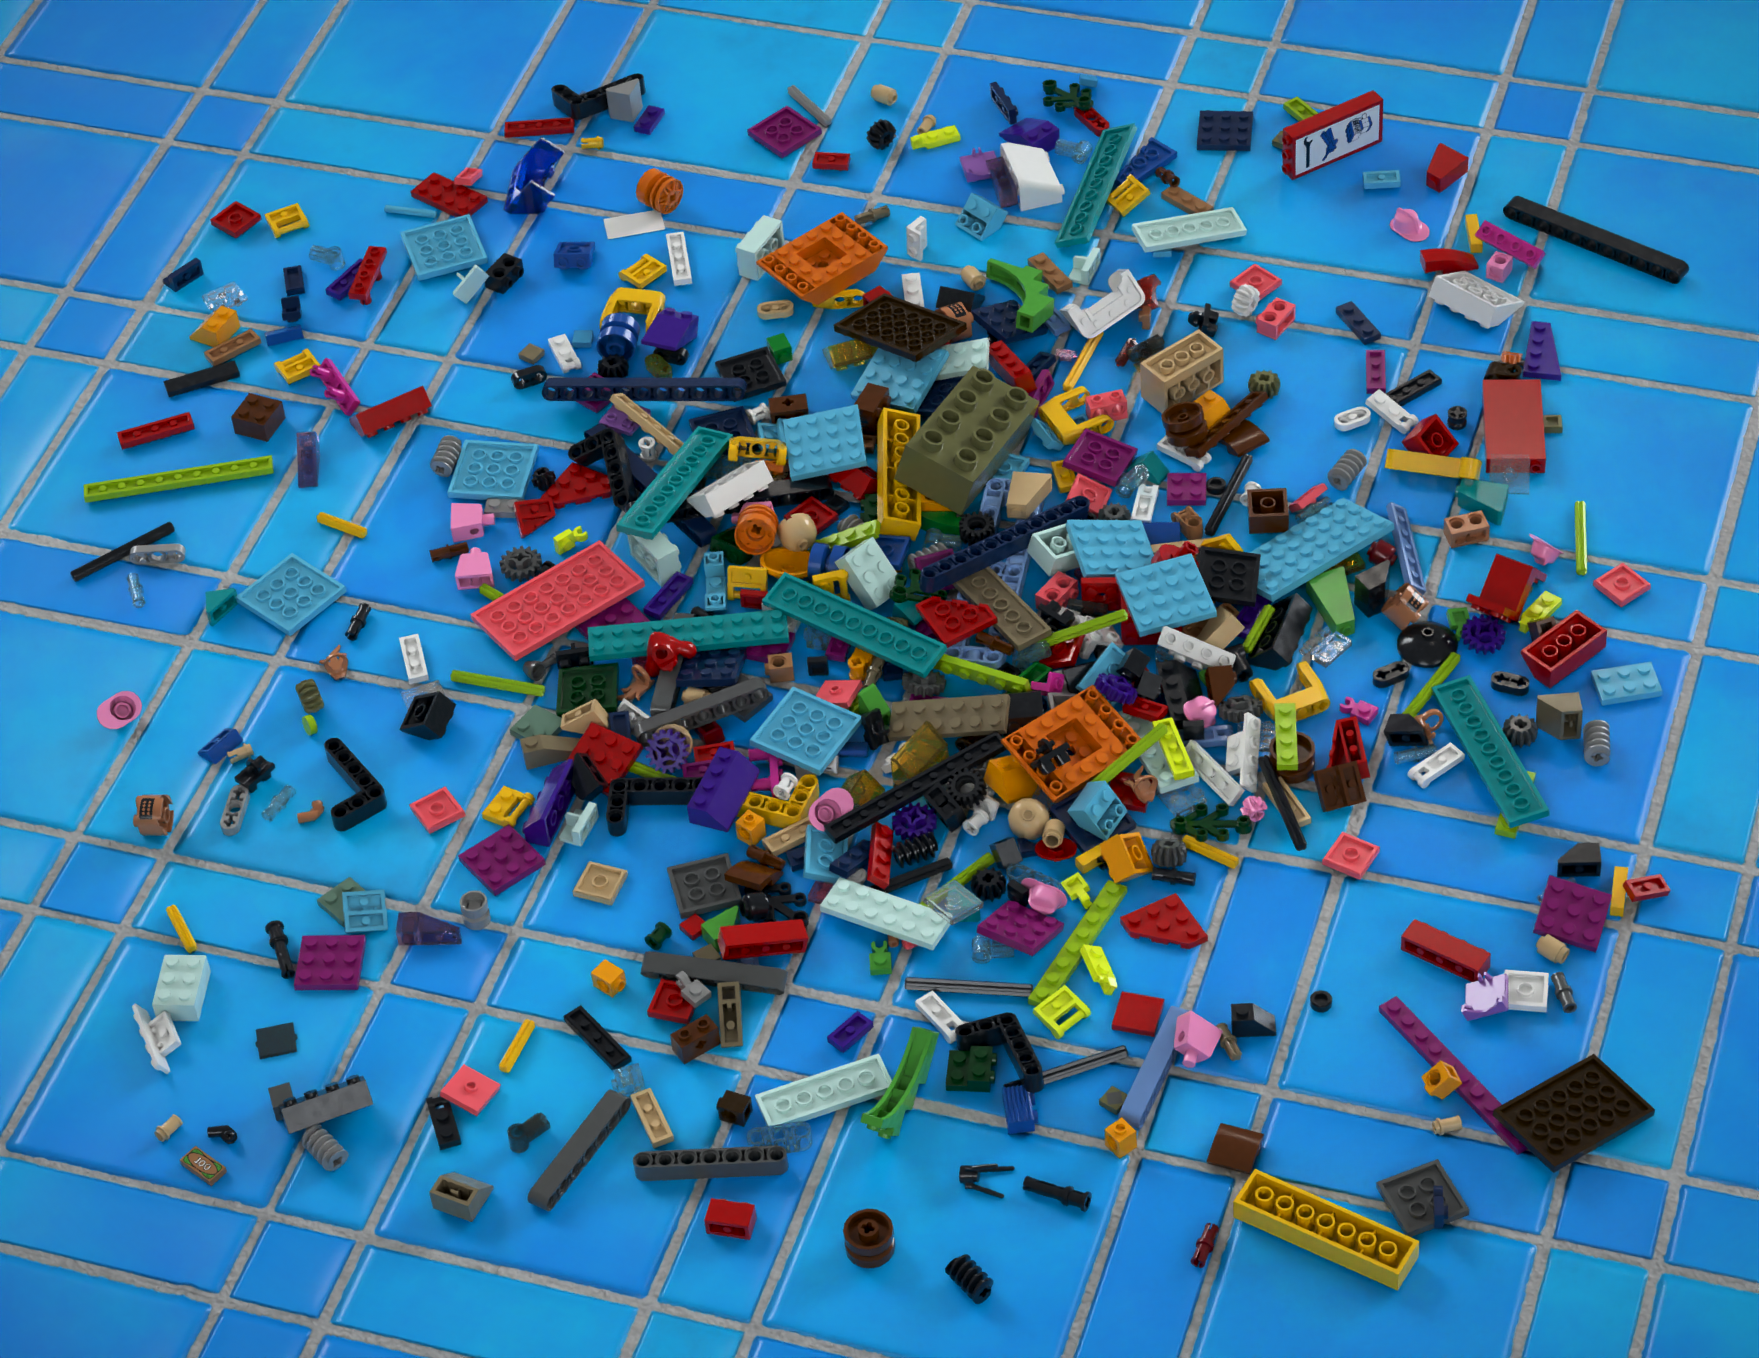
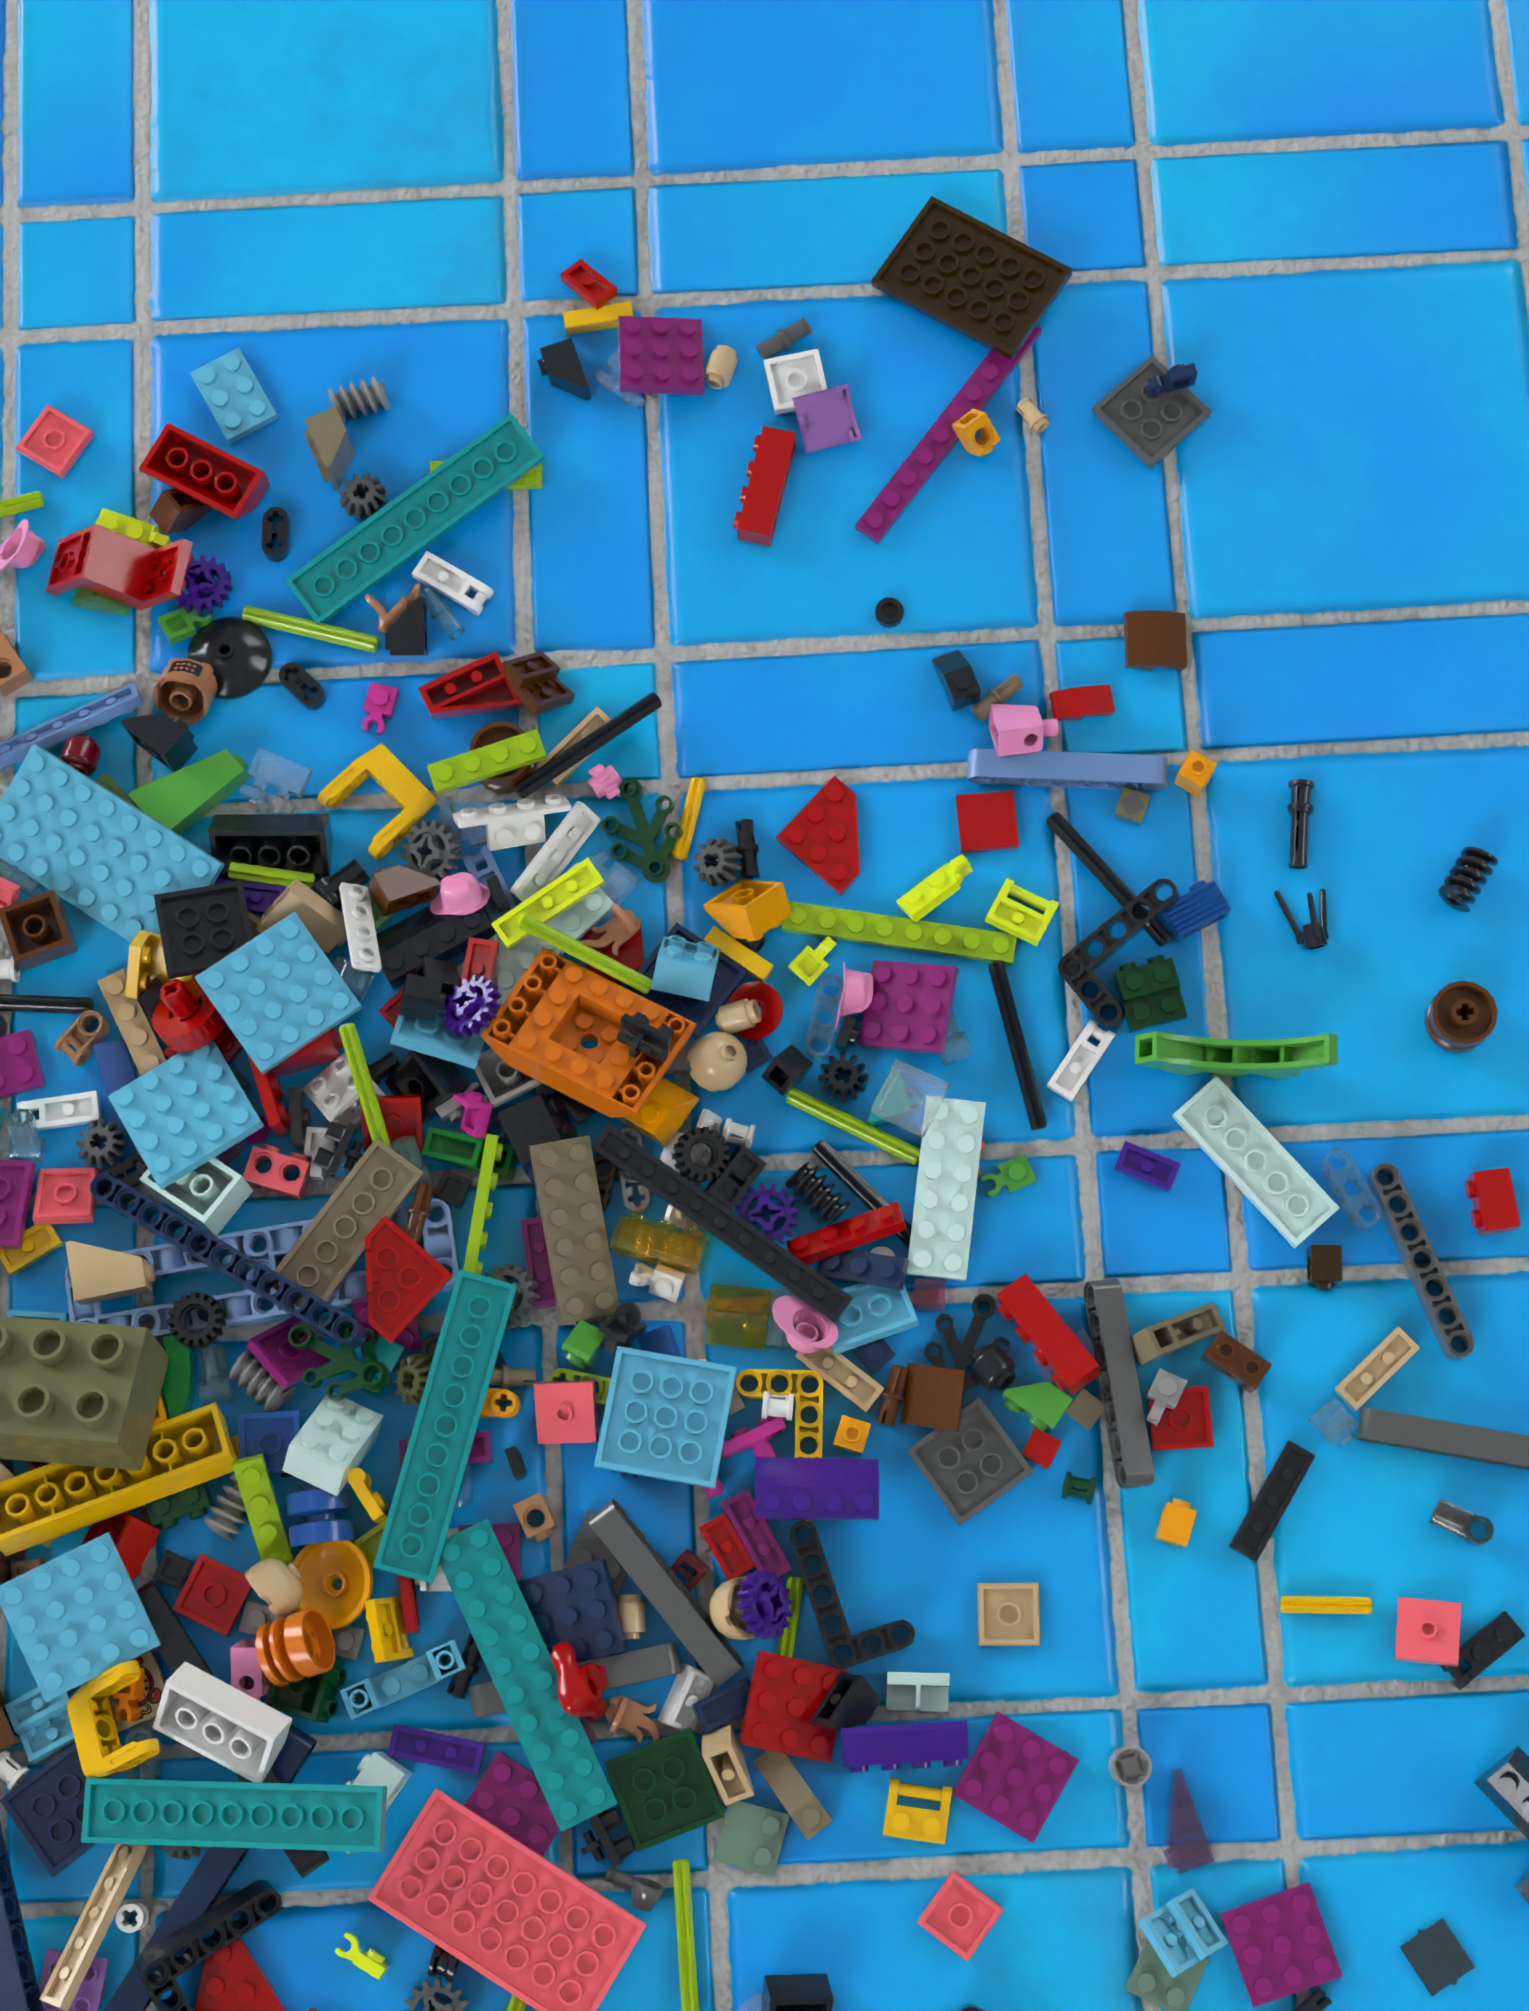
camera: 110 degrees left, 30 degrees up
(1204, 1091) = (1082, 701): none -> red slope
(1204, 1245) = (1308, 631): dark red pin -> none
(1326, 1229) = (1245, 498): yellow brick -> none
(1351, 855) = (642, 642): coral plate -> none

